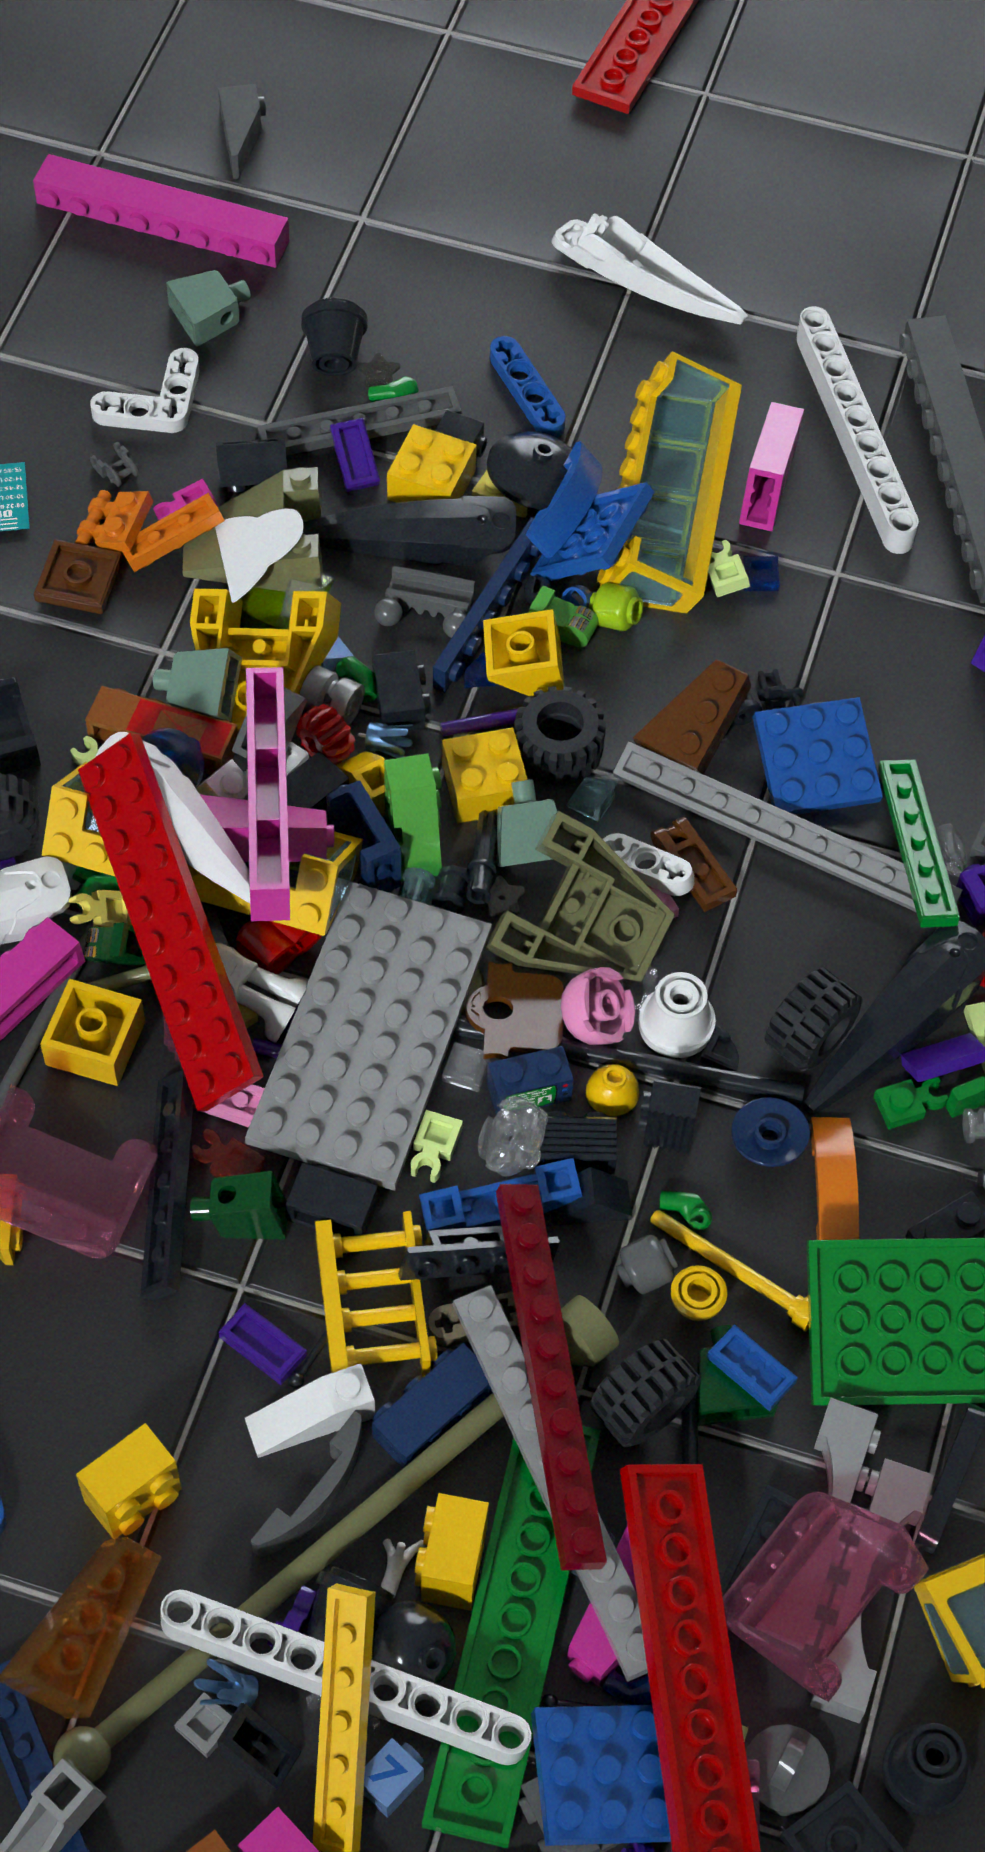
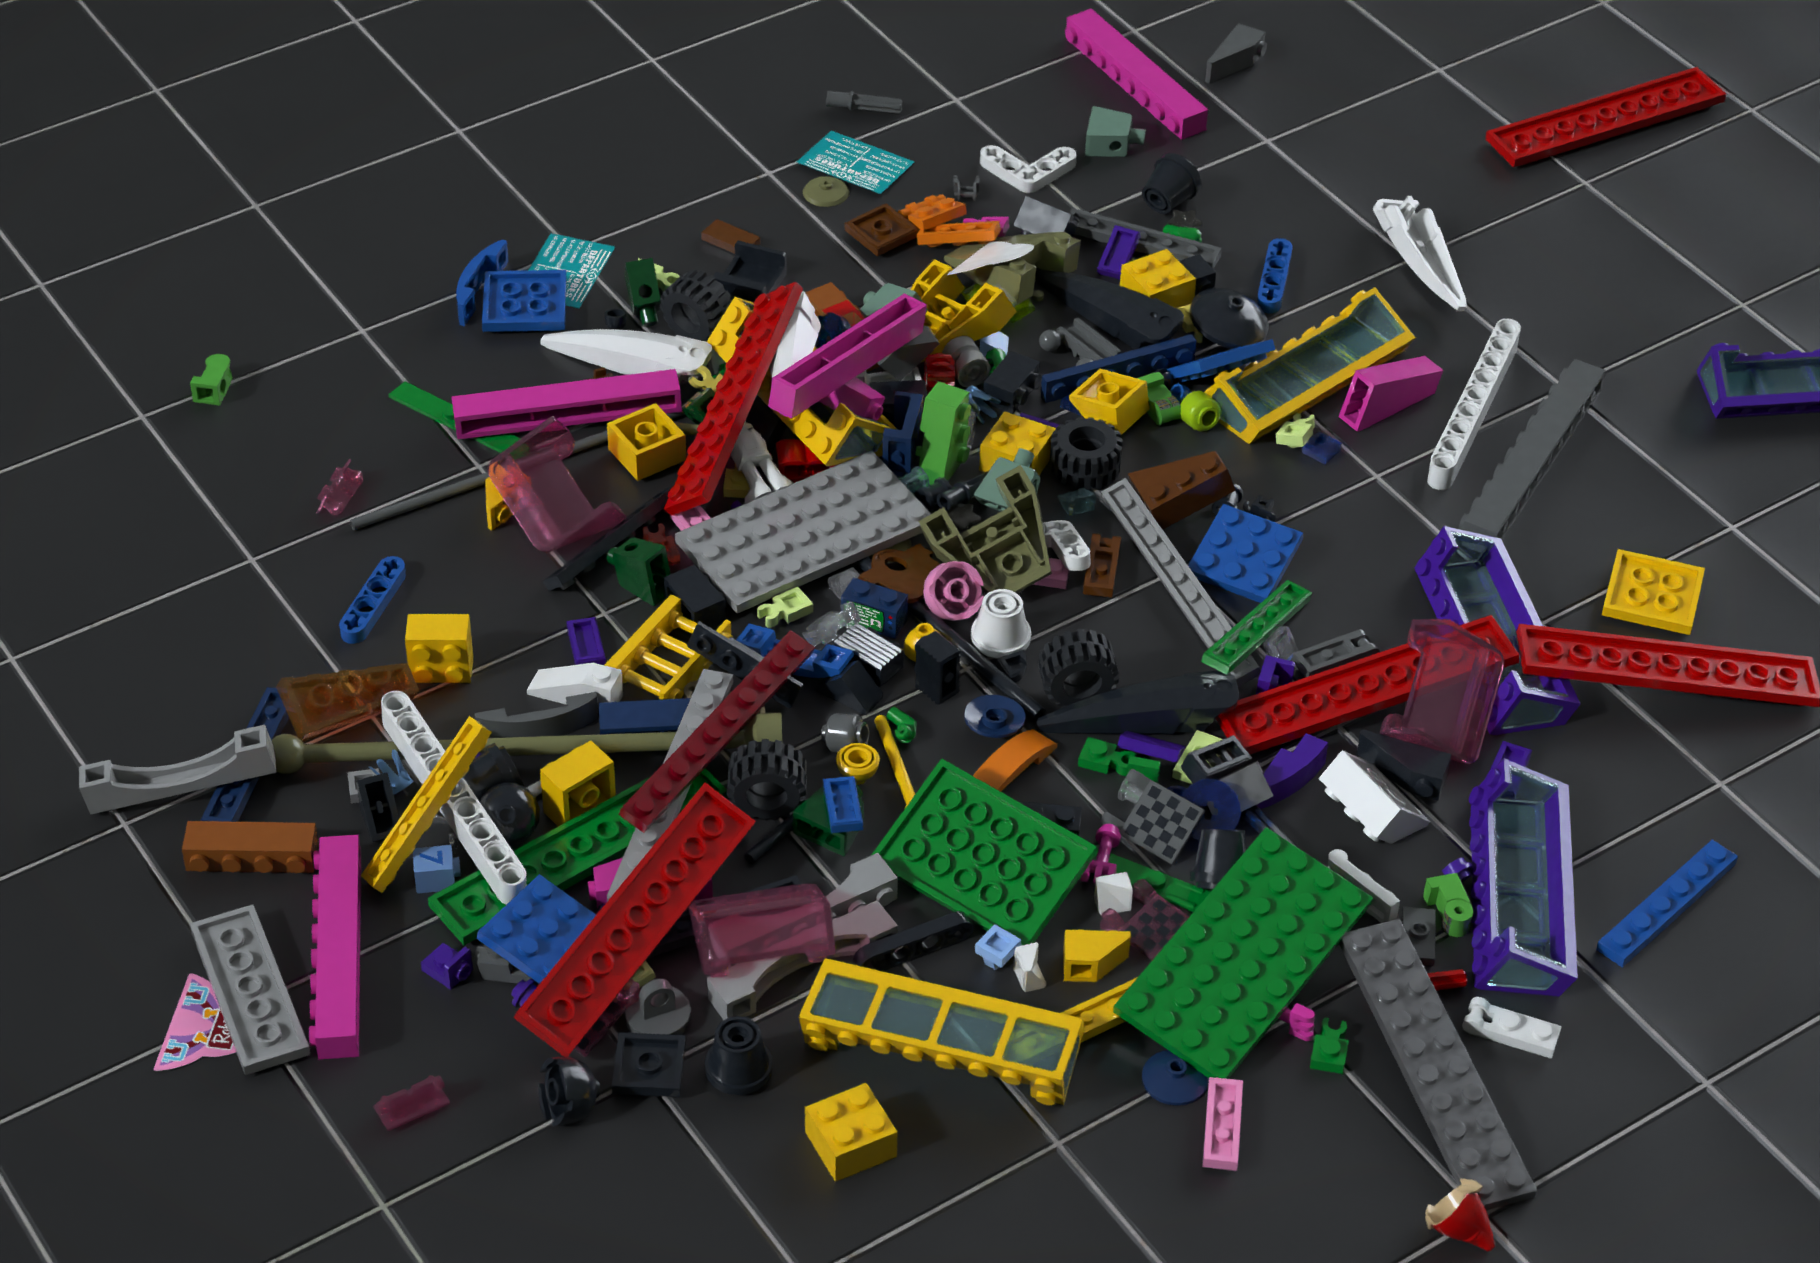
camera: 40 degrees right, 15 degrees down
(570, 503) = (1224, 337): blue slope -> none

